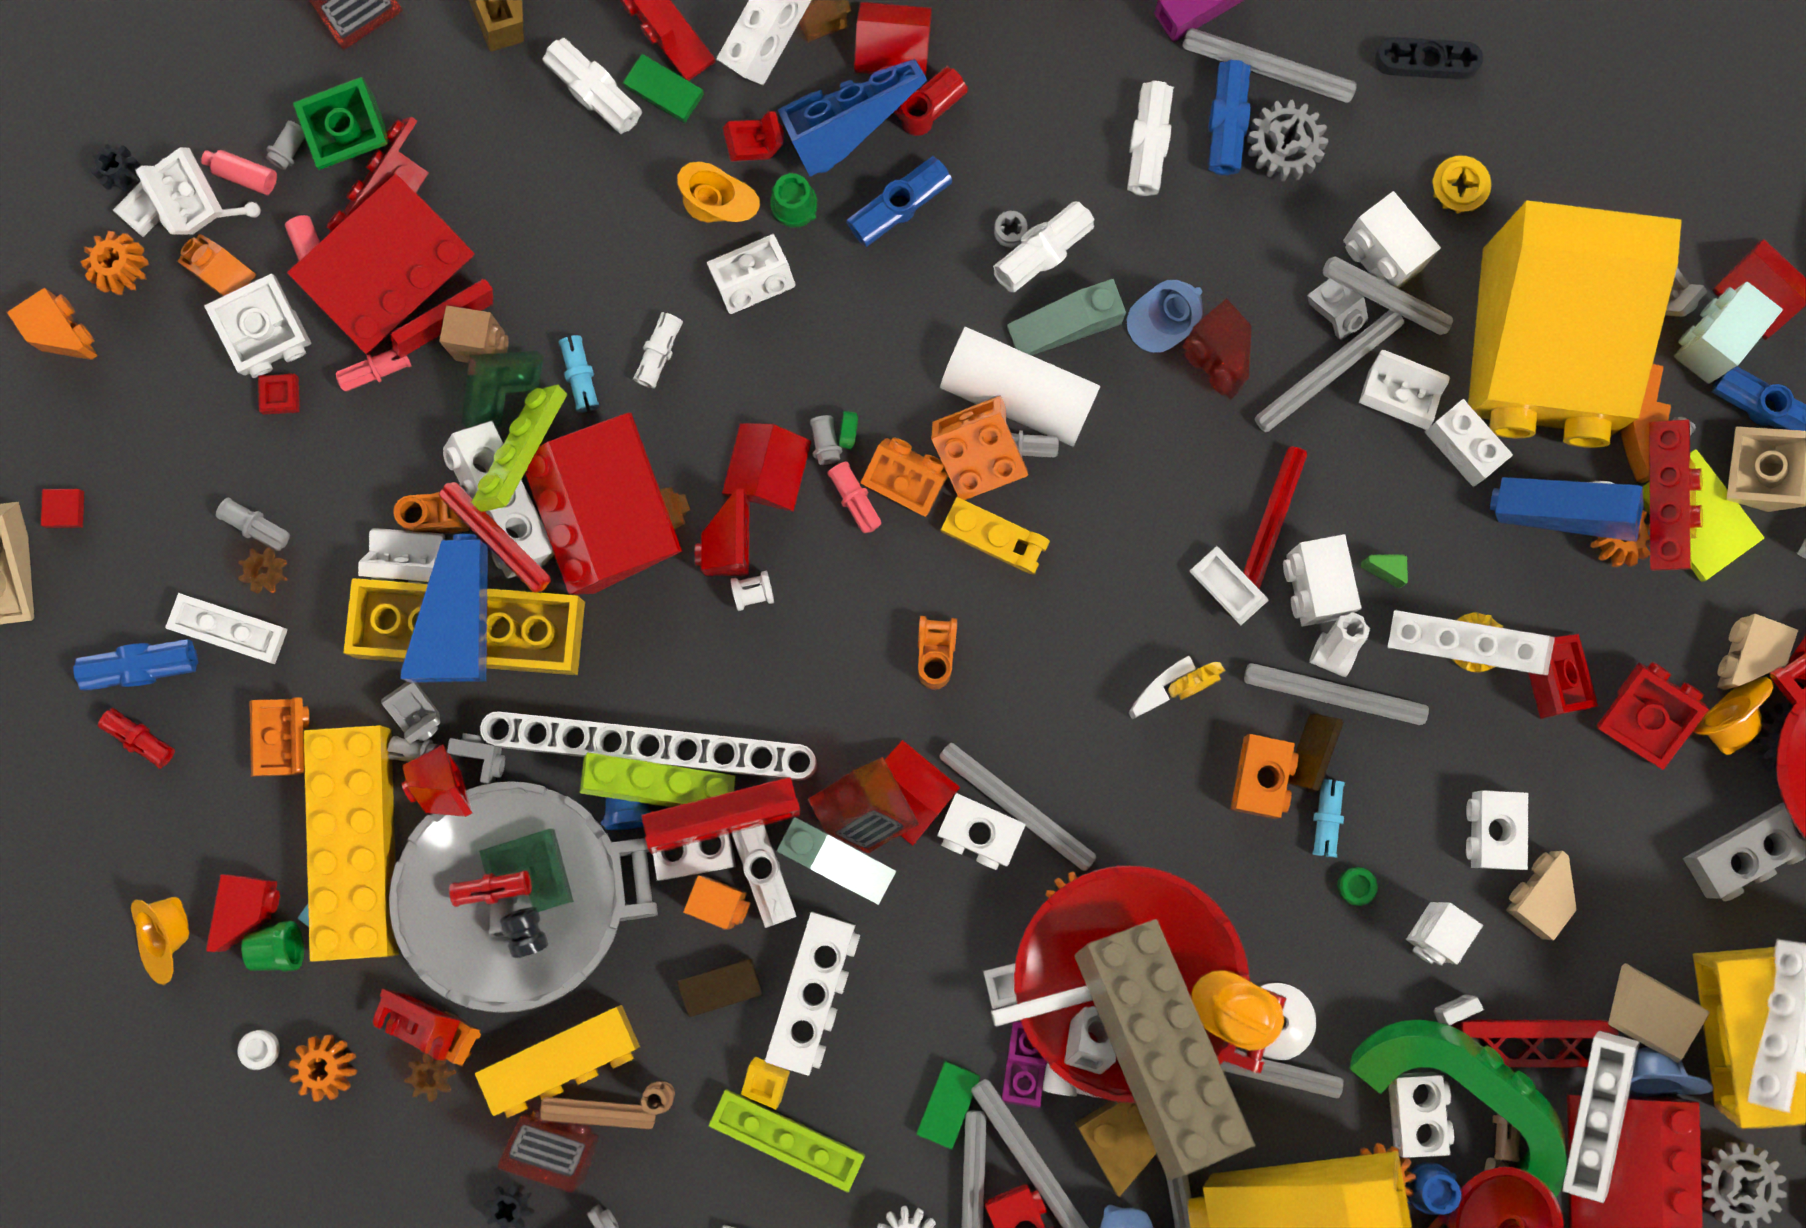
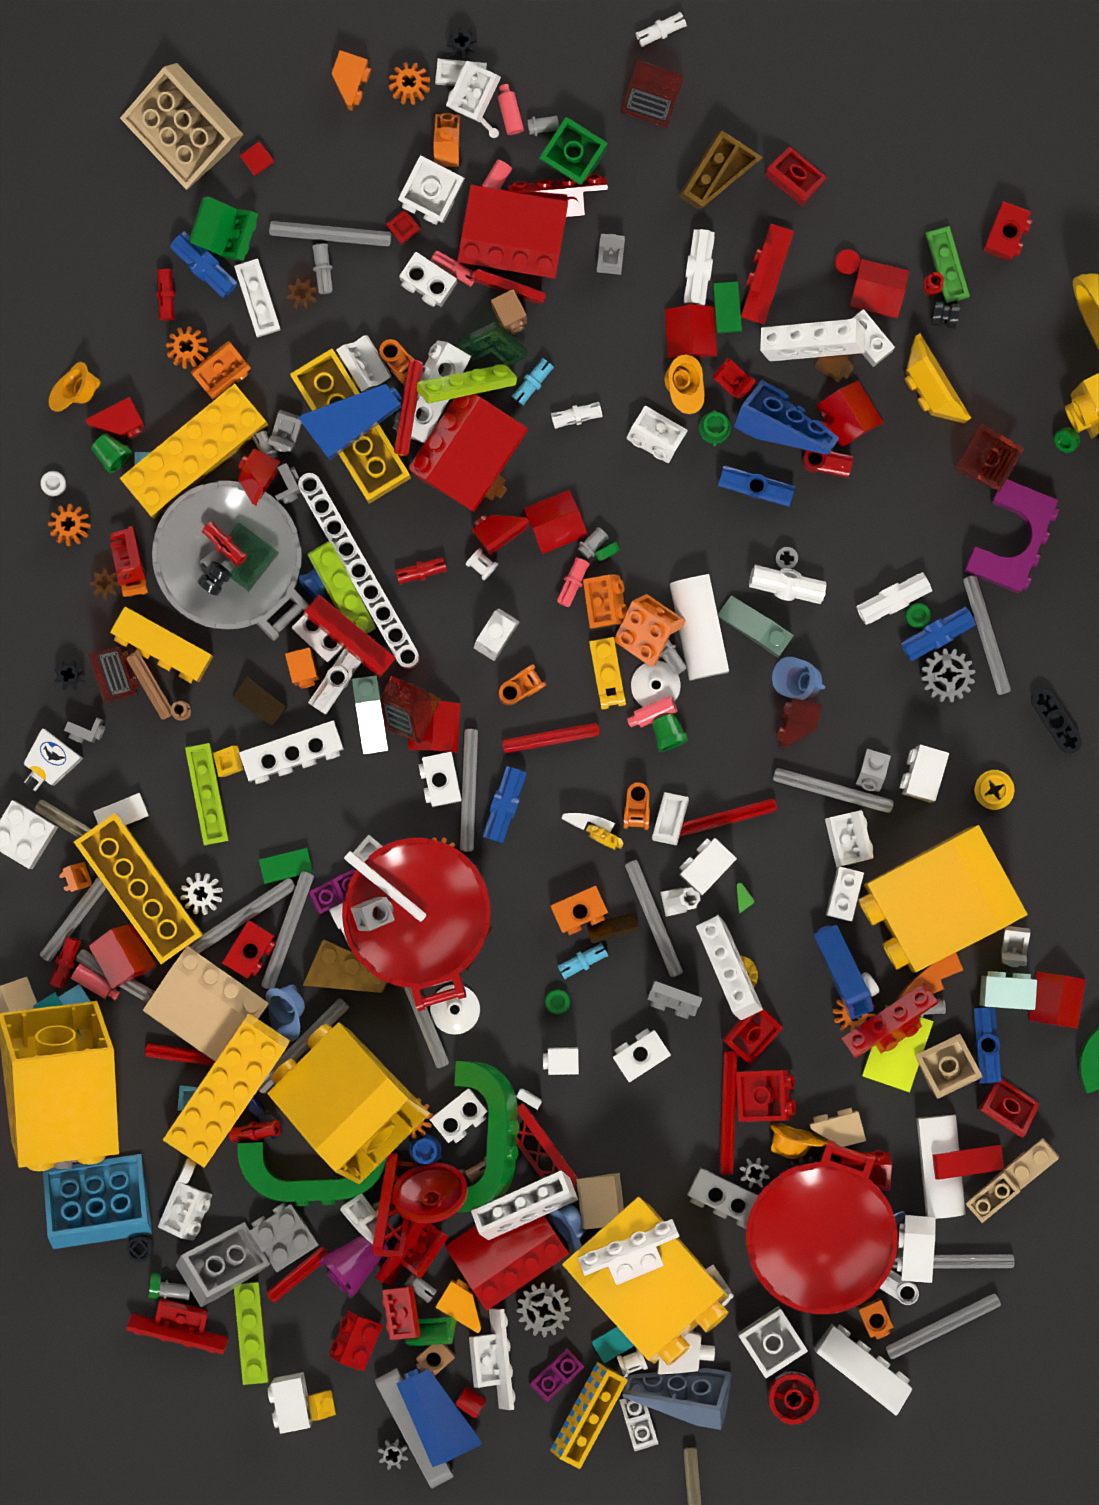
camera: 55 degrees right, 5 degrees up
(109, 608) = (223, 229): none -> green bracket
(209, 750) = (187, 356): none -> orange gear
(218, 486) = (329, 233): none -> light grey axle
(361, 398) = (432, 275): none -> white brick
(496, 173) = (610, 254): none -> light grey bracket
(656, 148) = (691, 331): none -> red slope
(705, 670) = (421, 570): none -> red pin
(851, 635) = (495, 634): none -> white torso
(1024, 660) = (550, 737): none -> red axle
(1049, 508) = (645, 675): none -> white dish
(1067, 775) = (504, 804): none -> blue piece
(1083, 514) = (652, 712): none -> coral cylinder
(1121, 513) = (668, 732): none -> green piece
(1163, 1049) = (393, 949): dark tan brick -> none
(1187, 616) = (637, 809): none -> orange piece
(1189, 127) = (918, 615): none -> green tile
(1237, 1010) = (441, 975): light orange piece -> none
(1387, 295) = (895, 792): light grey axle -> none
(1464, 733) = (683, 1002): none -> light grey plate
(1547, 897) = (622, 1106): tan slope -> none
(1641, 775) = (728, 1113): none -> red axle
(1751, 791) = (761, 1174): none -> light grey gear

